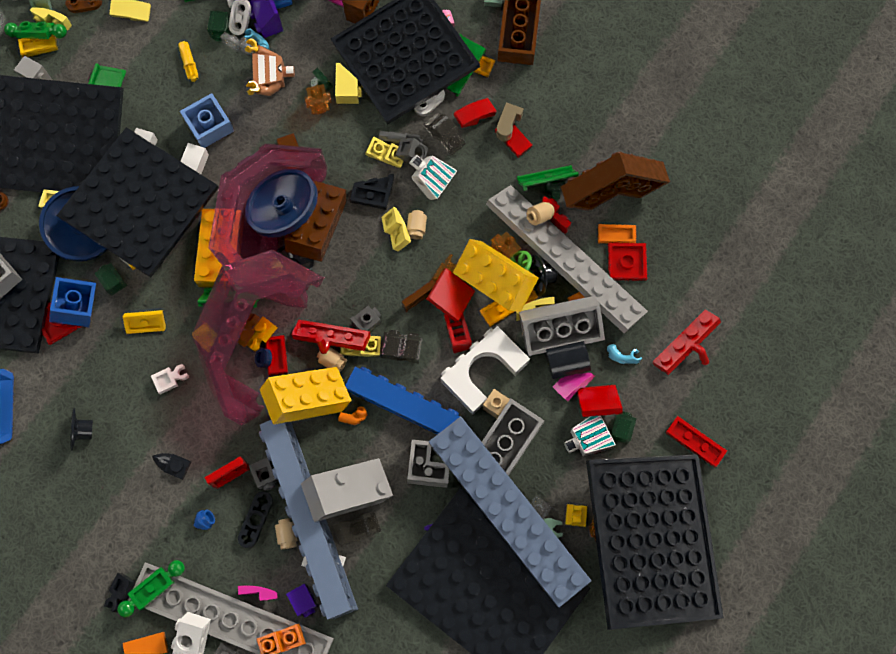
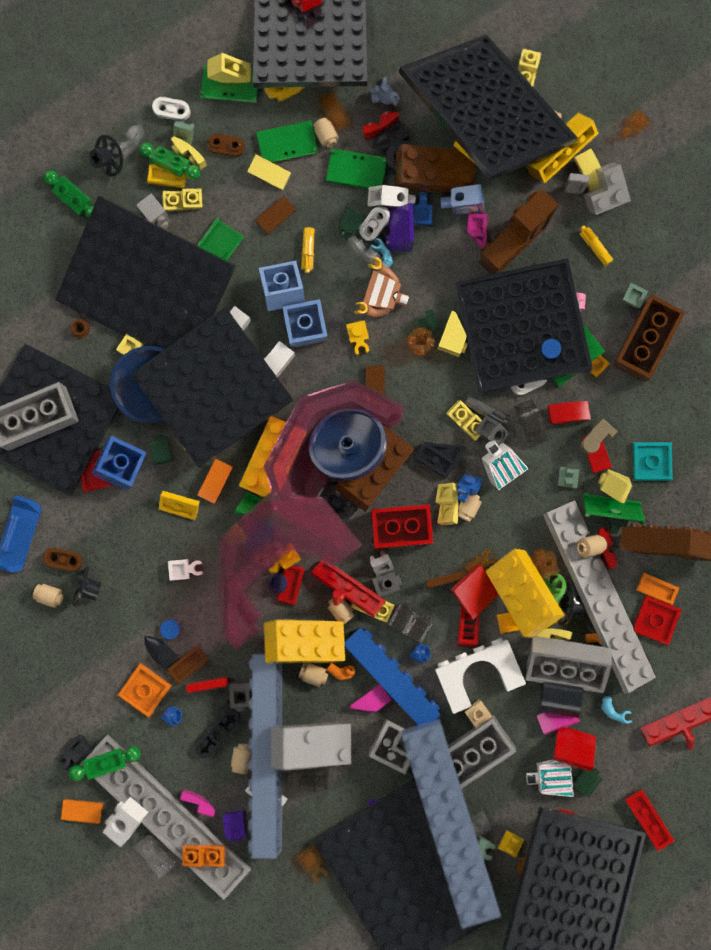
camera: 20 degrees right, 10 degrees up
(44, 451) = (48, 595): none -> tan brick
(49, 412) = (63, 560): none -> reddish brown plate
(60, 60) = (182, 200): none -> light yellow slope
(149, 43) = (275, 215): none -> reddish brown tile
(169, 506) = (144, 690): none -> orange tile
(171, 288) = (215, 480): none -> orange slope
(172, 95) = (281, 285): none -> medium blue brick
(175, 439) = (170, 629): none -> blue tile
(203, 466) = (187, 665): none -> reddish brown tile
(260, 115) = (357, 334): none -> yellow plate
(327, 428) = (313, 674): none -> tan brick
(354, 304) = (382, 564): none -> light grey tile
(361, 262) = (402, 526): none -> red brick
(389, 607) = (311, 860): none -> clear orange plate
(392, 432) = (372, 700): none -> dark pink slope
(408, 205) = (467, 486): none -> blue plate
(422, 371) = (421, 653): none -> blue plate
(436, 60) = (551, 349): none -> blue tile
(497, 168) = (568, 477): none -> sand green tile
(540, 156) = (615, 485): none -> light yellow slope
(566, 128) = (652, 461): none -> teal tile

